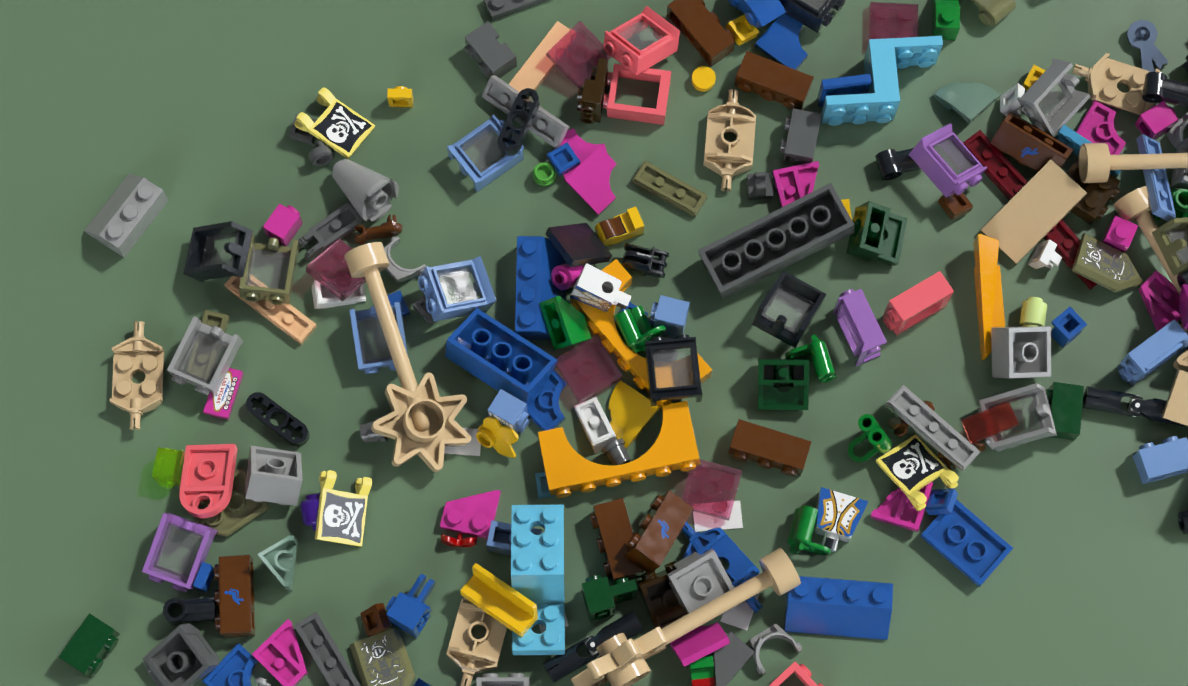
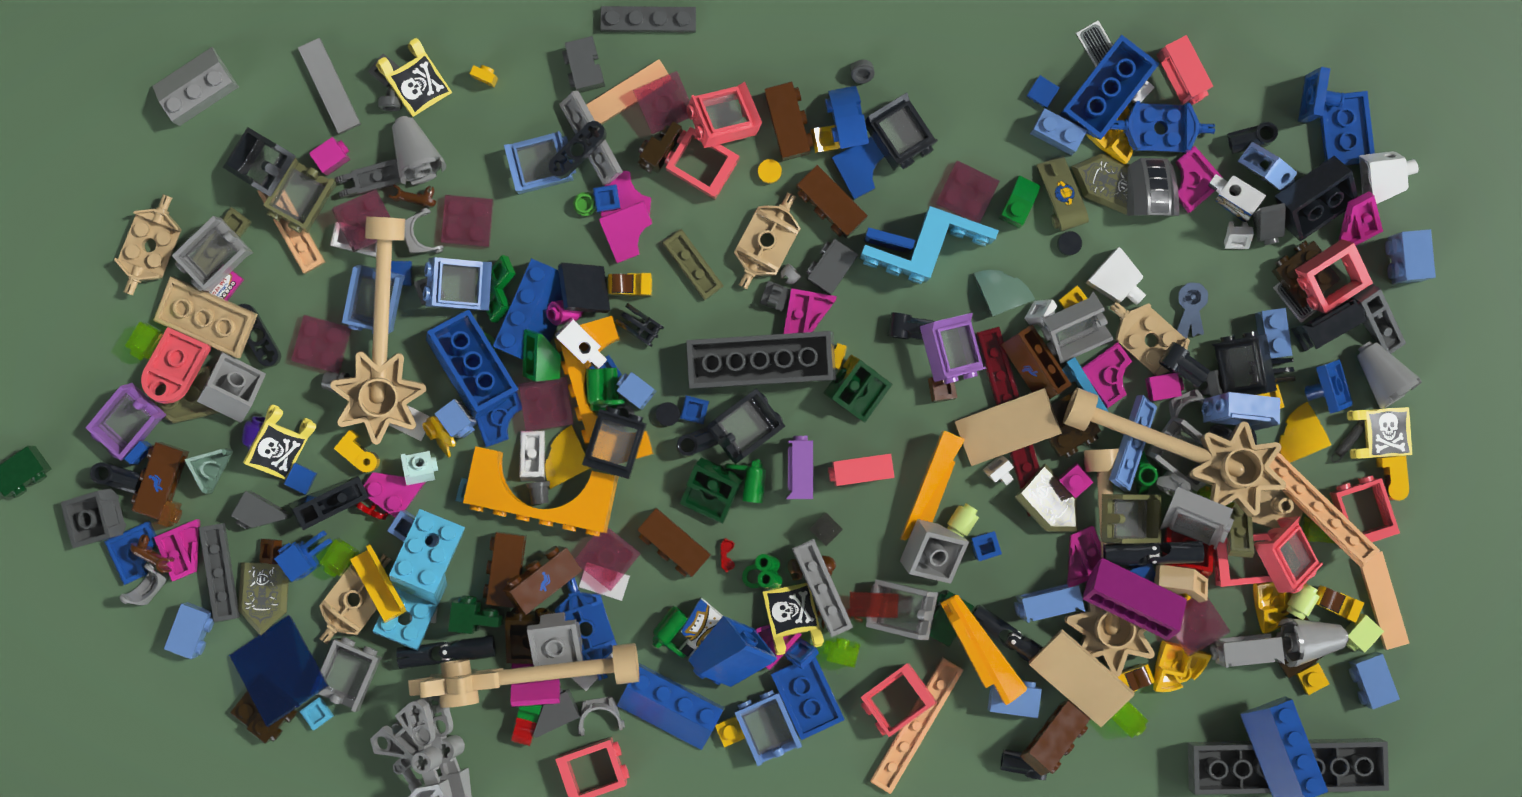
camera: 20 degrees right, 15 degrees up
(220, 420) = (205, 317): none -> tan tile
(245, 669) = (146, 552): none -> reddish brown piece
(256, 164) = (329, 86): none -> light grey tile
(260, 624) = (170, 514): none -> clear orange plate
(344, 402) = (321, 344): none -> clear pink plate
(348, 586) = (257, 511): none -> dark grey slope
(376, 538) = (300, 478): none -> blue tile
(414, 547) = (328, 502): none -> black slope
(423, 491) = (357, 455): none -> yellow leg
(439, 233) = (467, 221): none -> clear pink plate
(446, 598) = (338, 557): none -> clear neon green brick
(490, 477) = (415, 474): none -> light aqua brick
(494, 264) = (501, 274): none -> green tile
(708, 333) = (667, 414): none -> black tile
(731, 318) = (694, 409): none -> blue tile
(751, 342) = (702, 440): none -> black piece
(766, 159) = (791, 273): none -> light grey hinge
(820, 434) = (725, 547): none -> red piece
(876, 525) = (731, 653): none -> blue slope
(907, 608) = (729, 731): none -> yellow plate
(908, 373) = (825, 528): none -> clear smoke brick
(943, 586) = (767, 727): none -> window
(979, 484) = (841, 652): none -> clear neon green brick
(1007, 34) = (1069, 243): none -> black tile
(1067, 43) = (1117, 278): none -> white torso
(1067, 483) = (917, 684): none -> coral window
(1083, 528) = (911, 736): none -> light nougat tile
(1113, 425) = (982, 652): none -> light orange wedge

